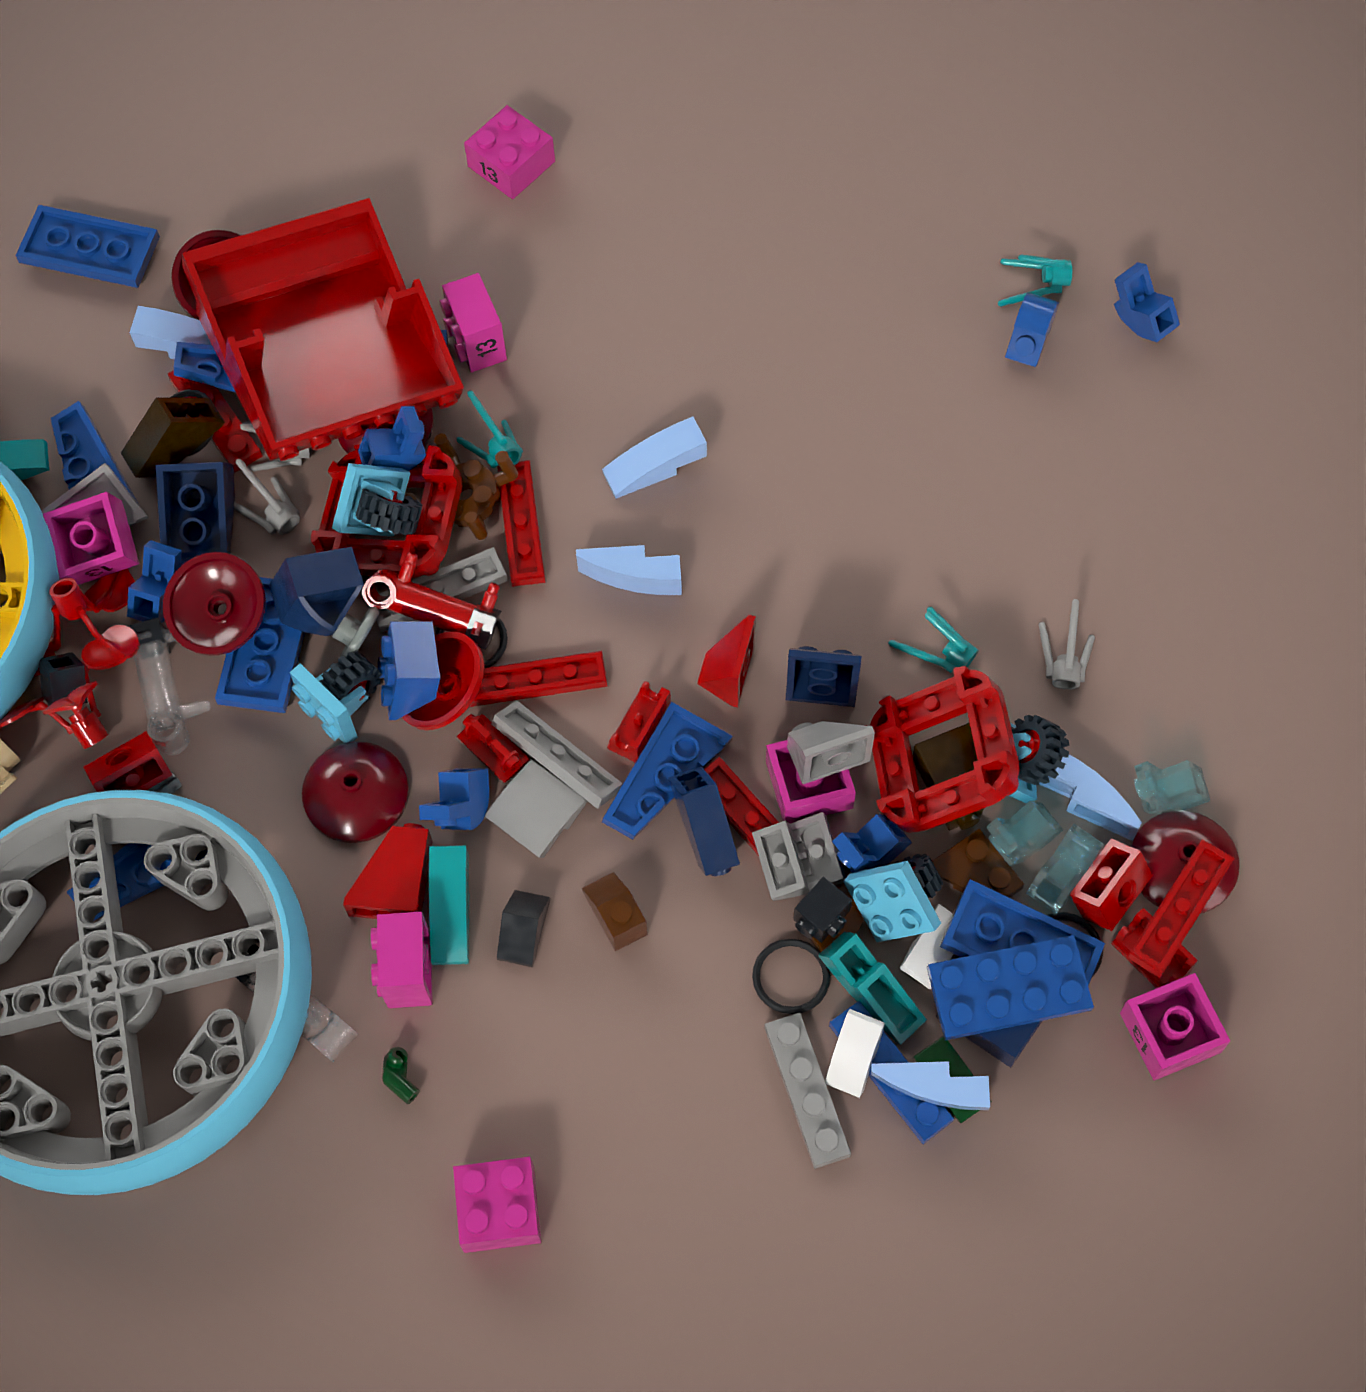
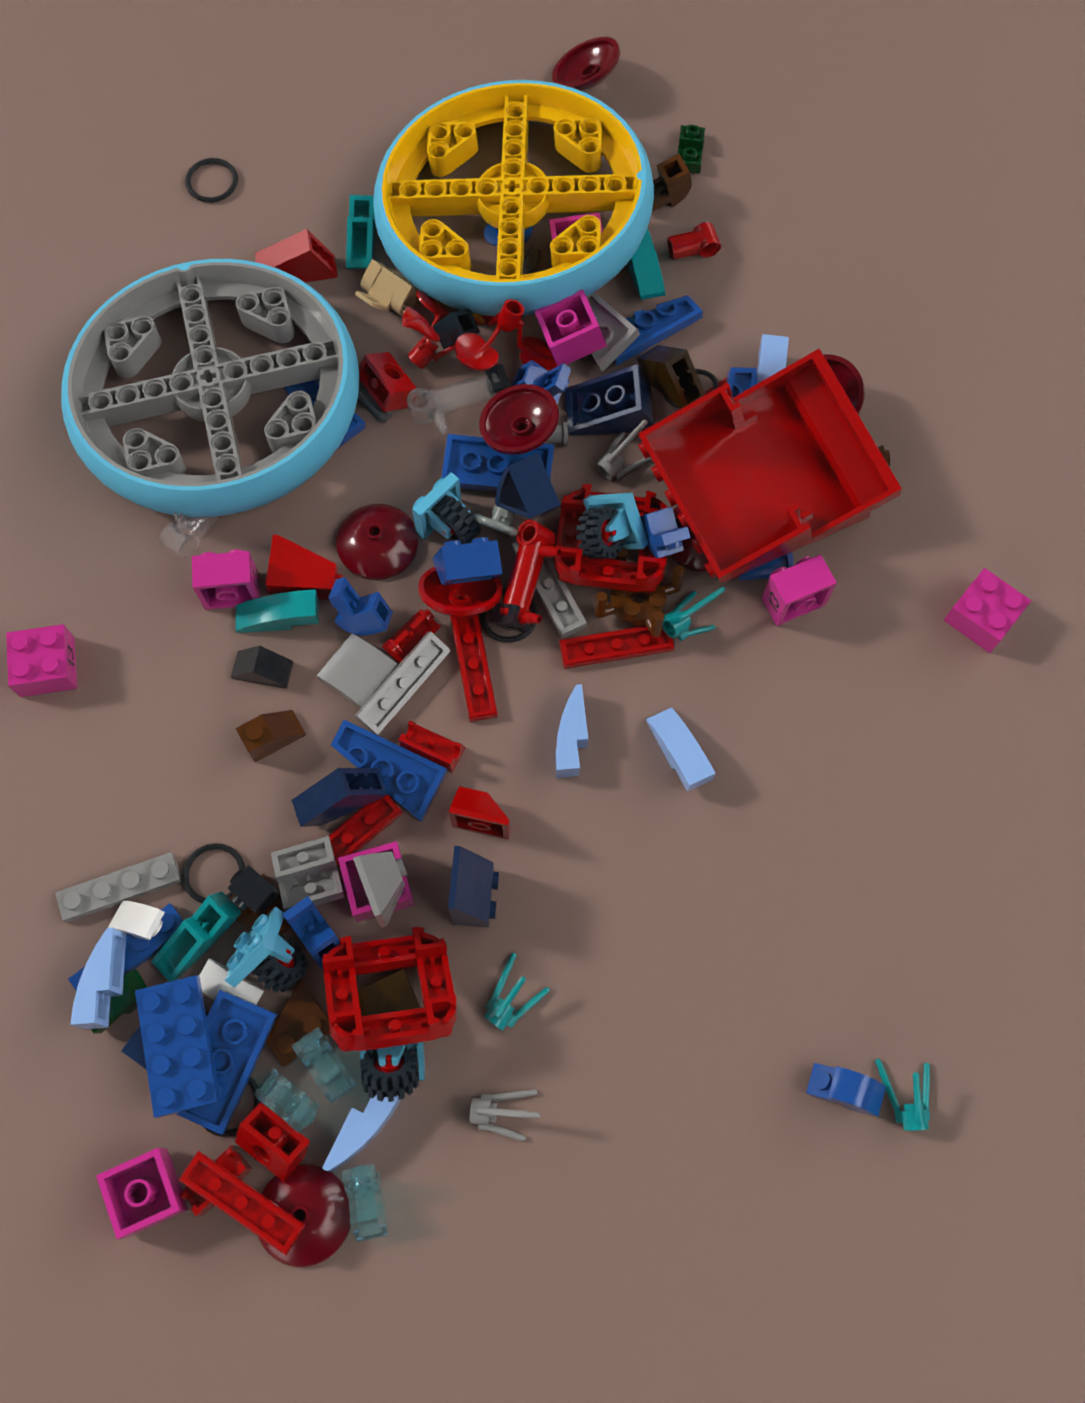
camera: 85 degrees right, 5 degrees up
(88, 246) = (852, 301): blue plate -> none
(395, 1075) = (146, 587): dark green arm -> none
(1141, 308) = (880, 1204): blue brick -> none

